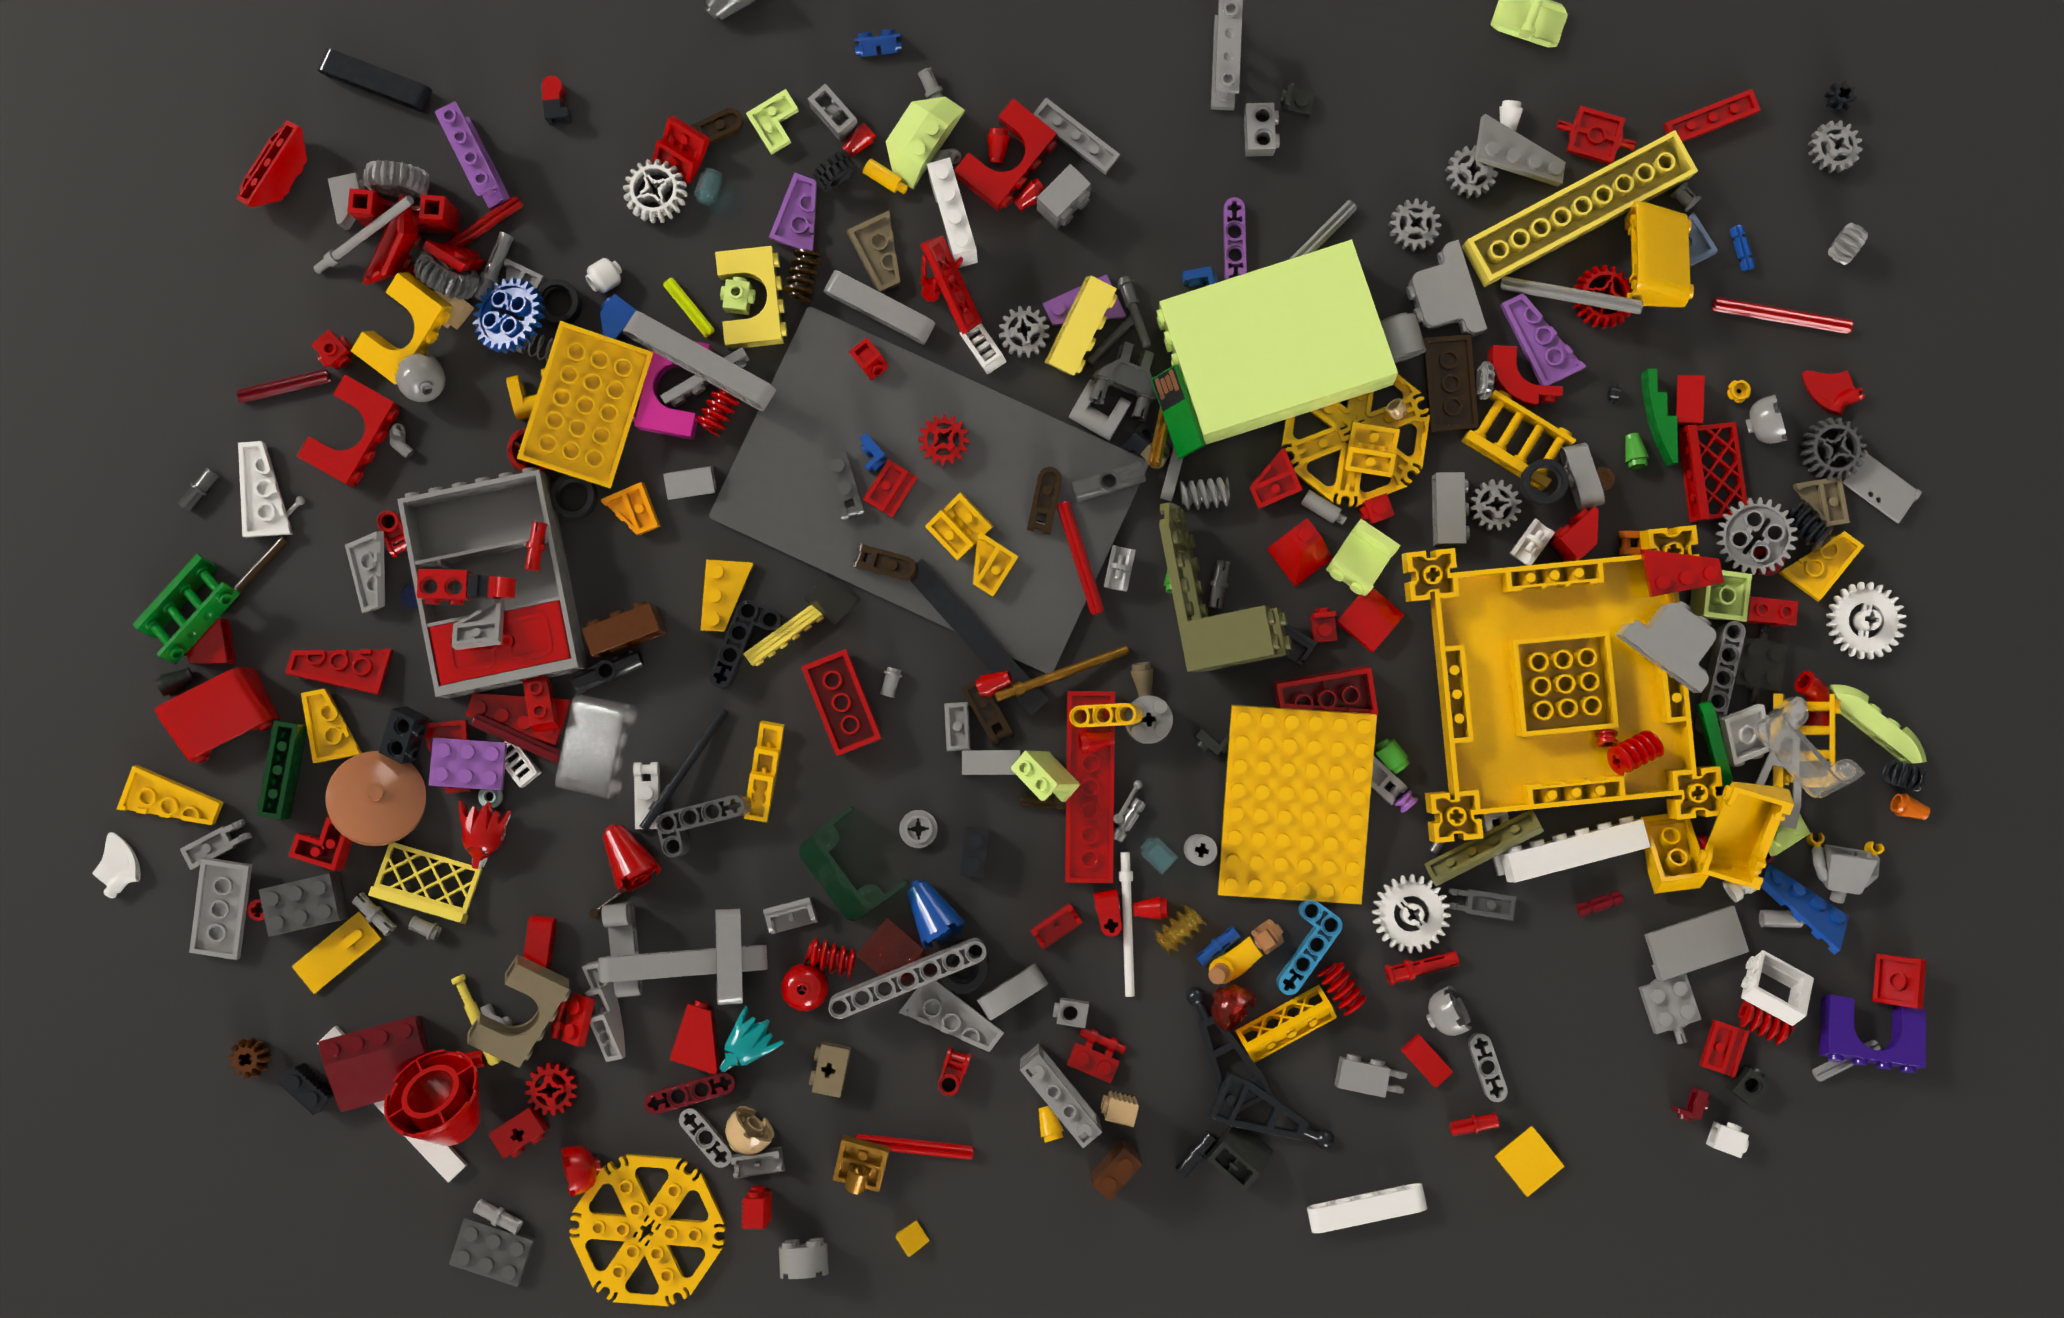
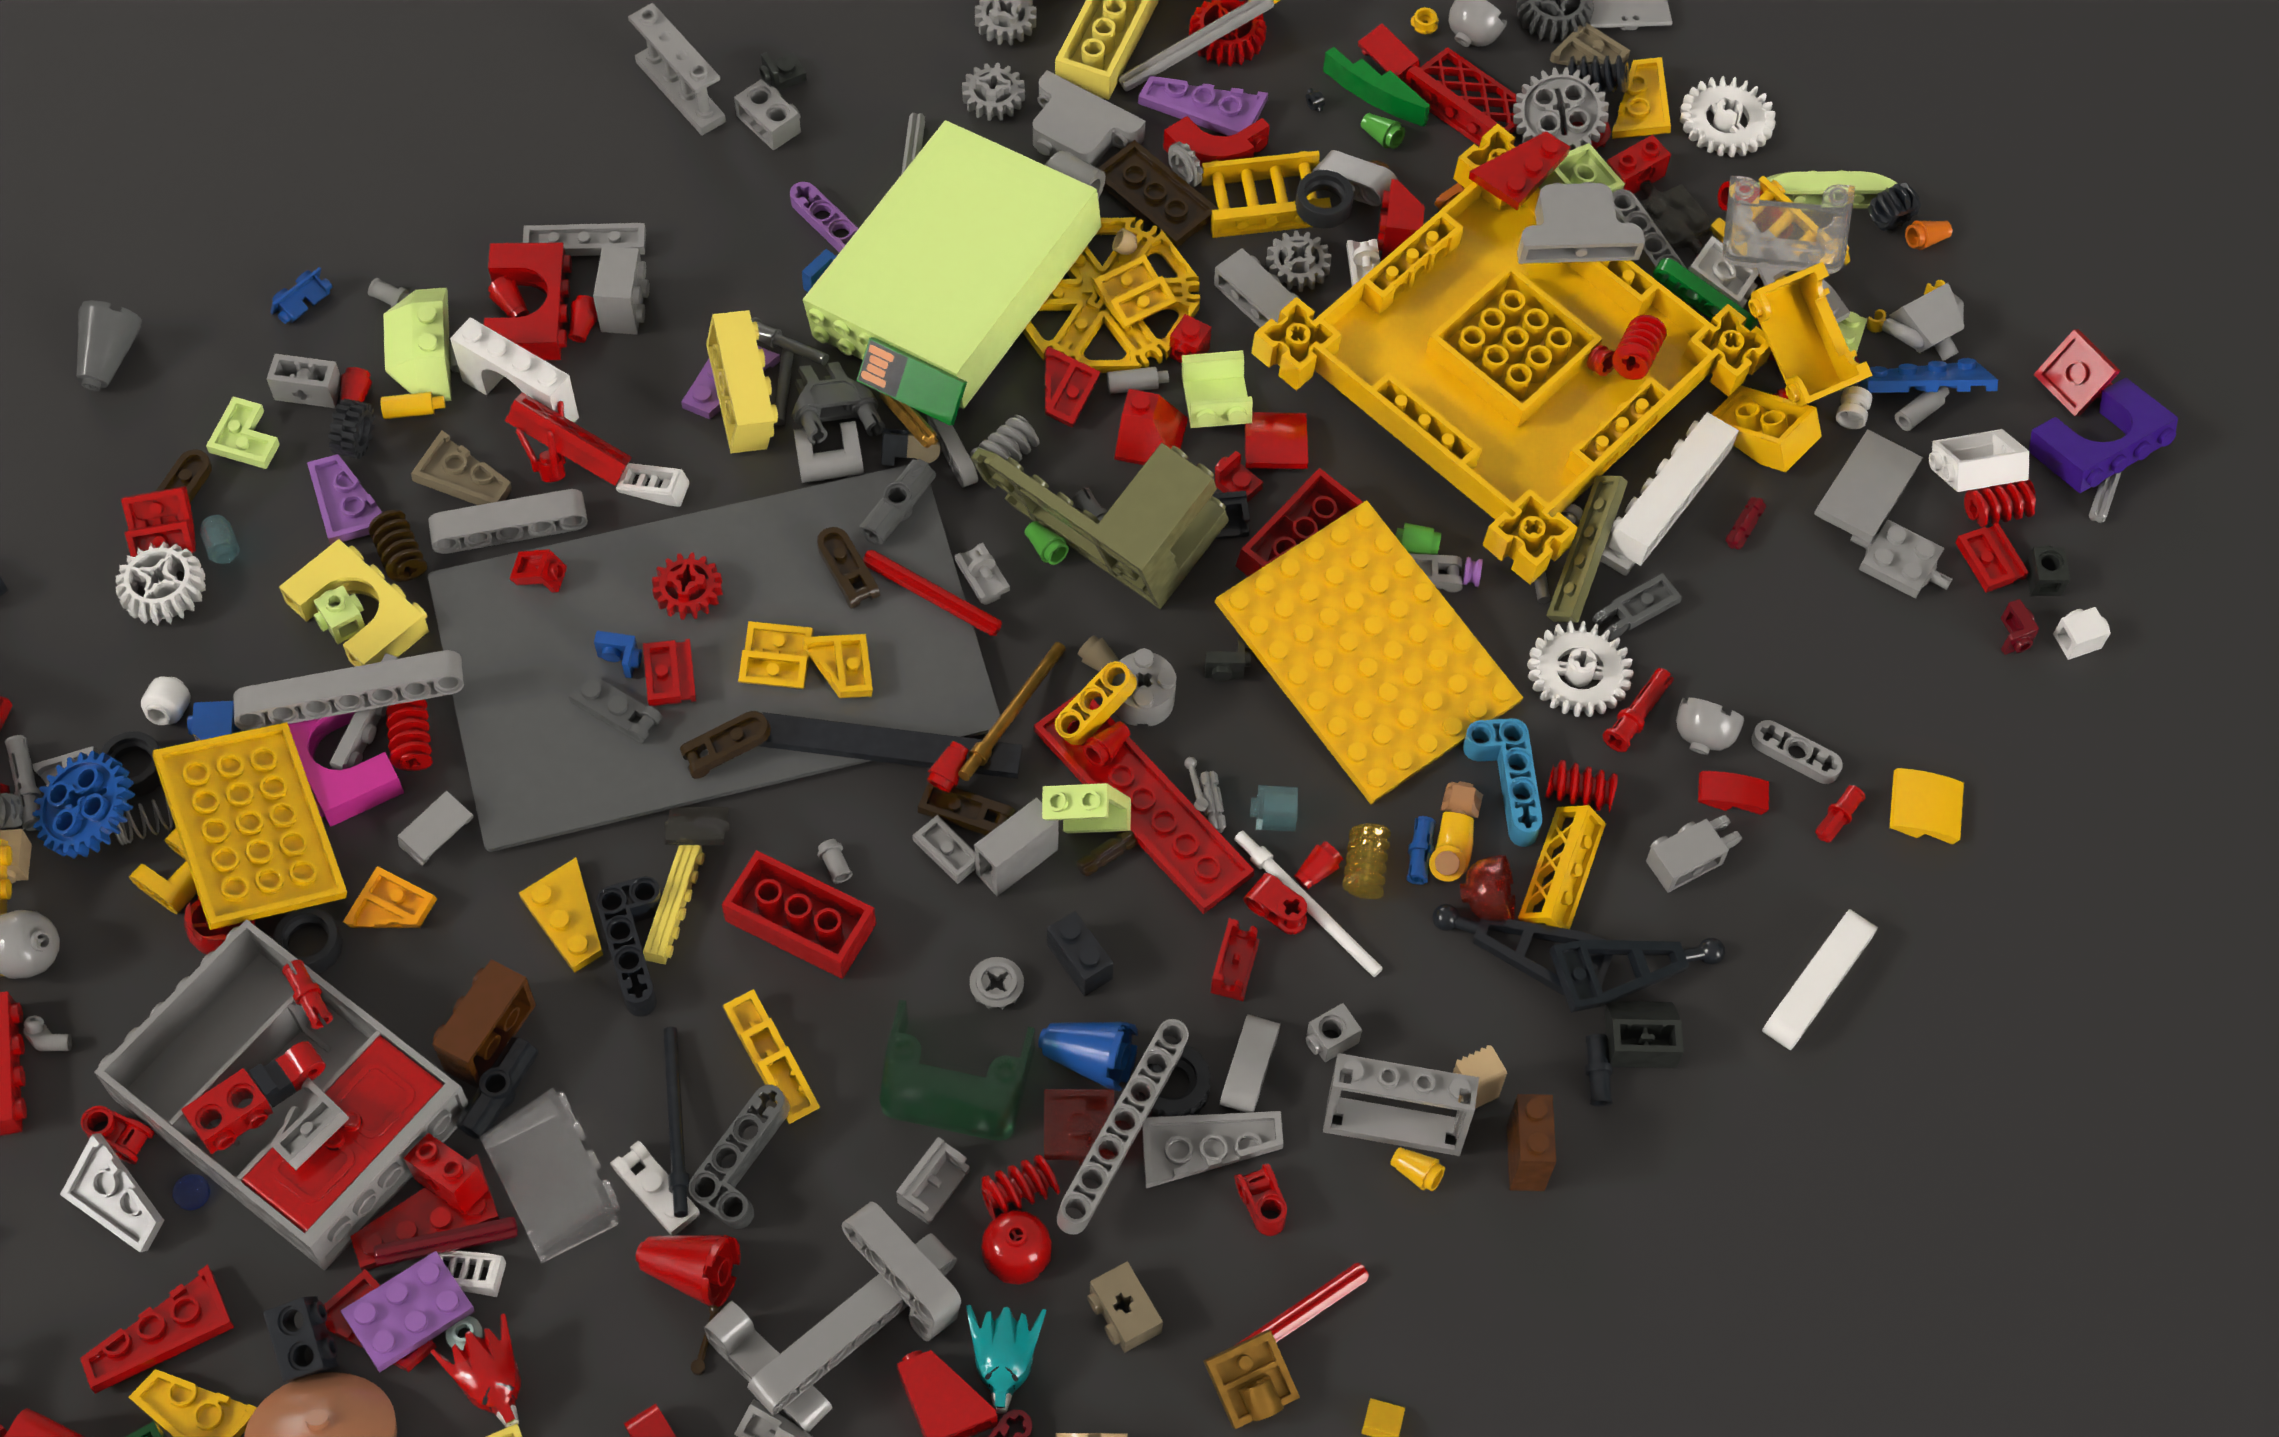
camera: 45 degrees left, 25 degrees down
(688, 307) = (283, 665): neon yellow axle -> none
(1033, 331) = (685, 437): light grey gear -> none
(1095, 1062) = (1413, 1055): red plate -> none
(1207, 843) = (1313, 762): light grey piece -> none

